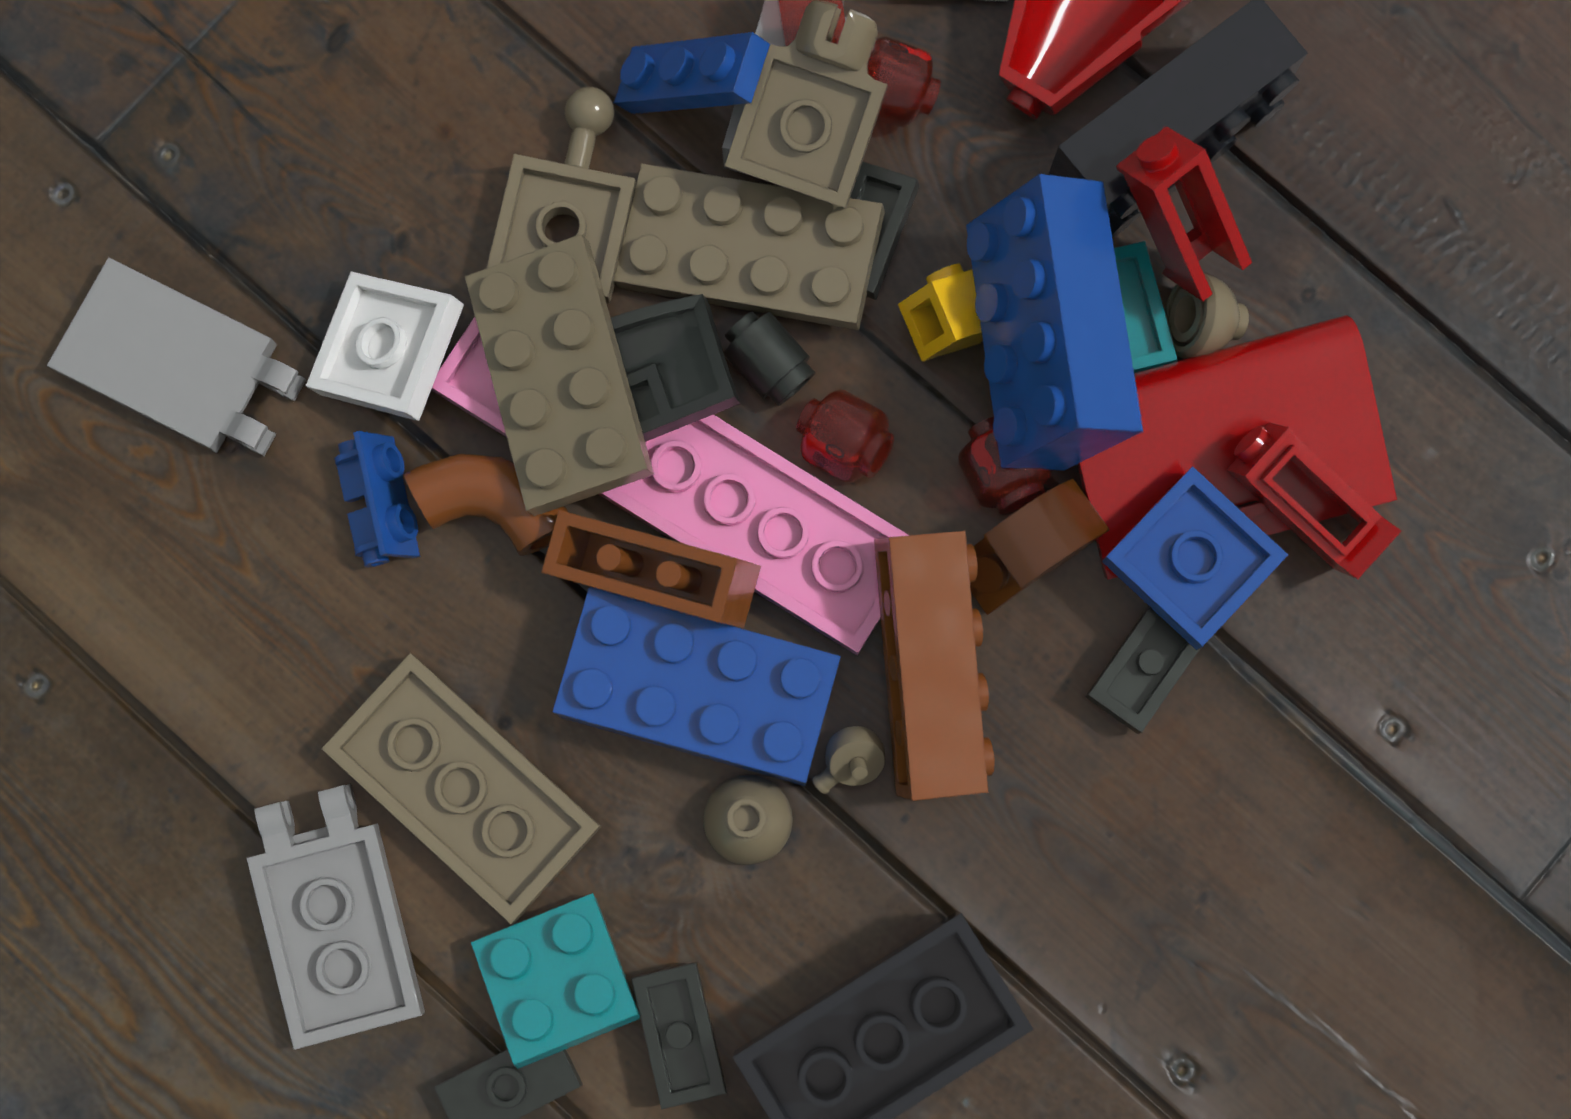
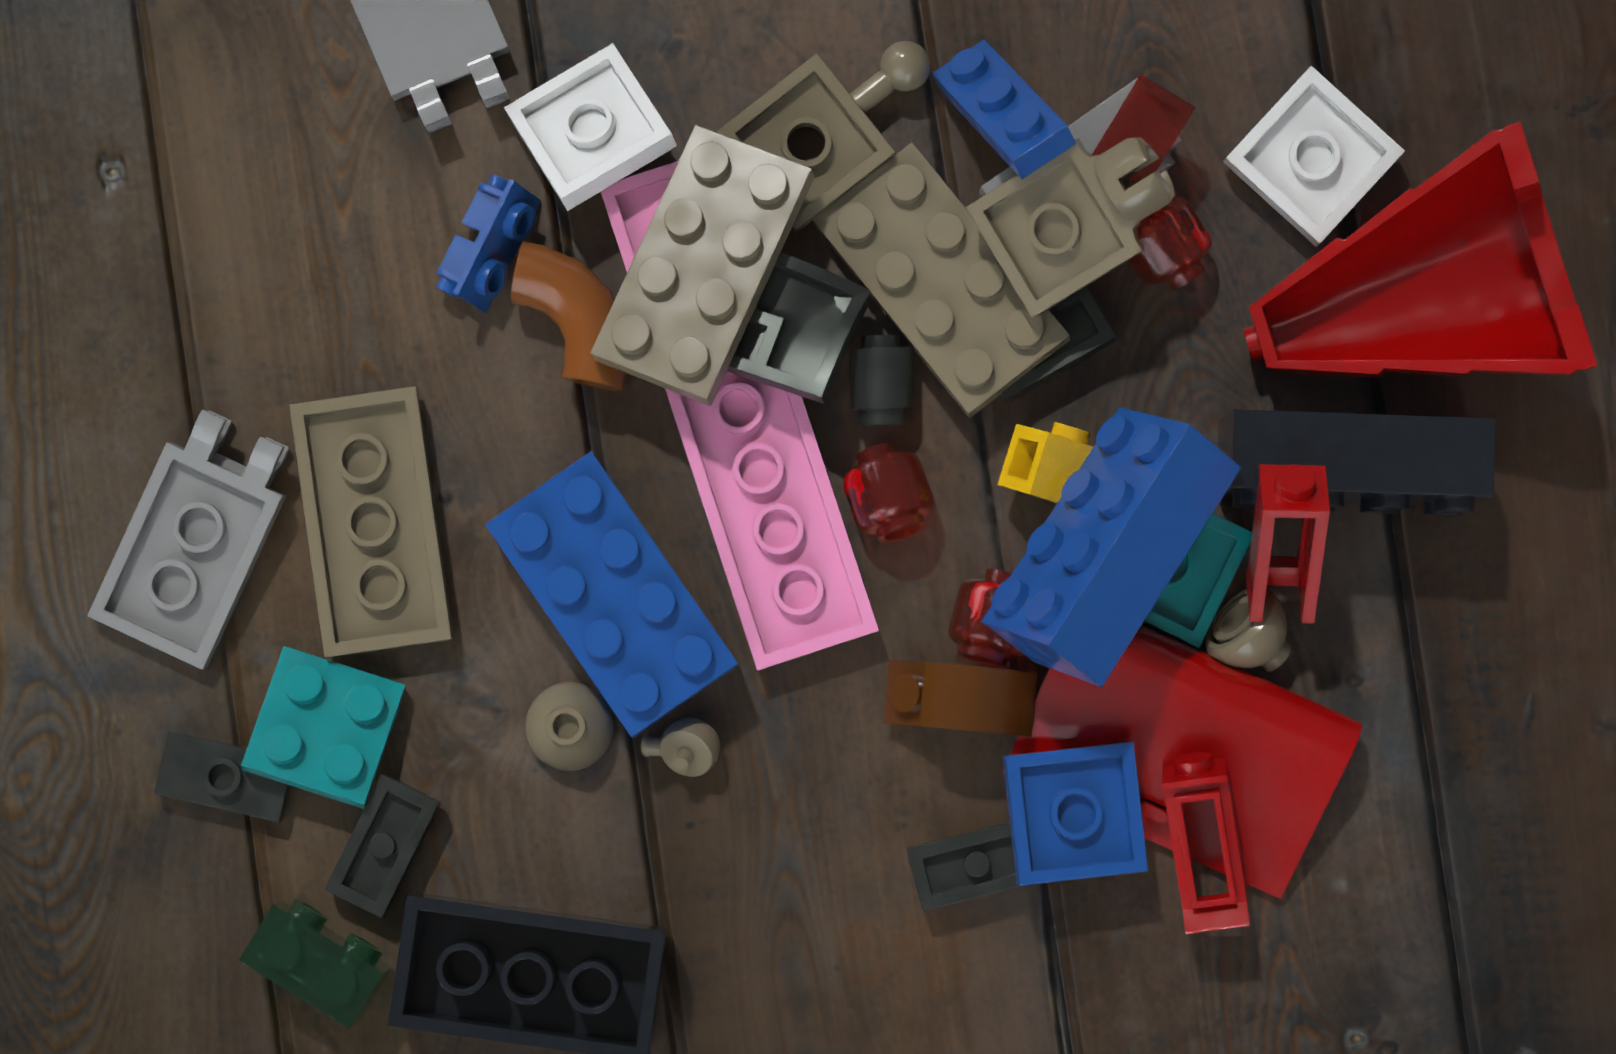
camera: 35 degrees right, 5 degrees up
(651, 569) = (649, 476): dark orange brick -> none
(933, 665) = (804, 727): dark orange brick -> none

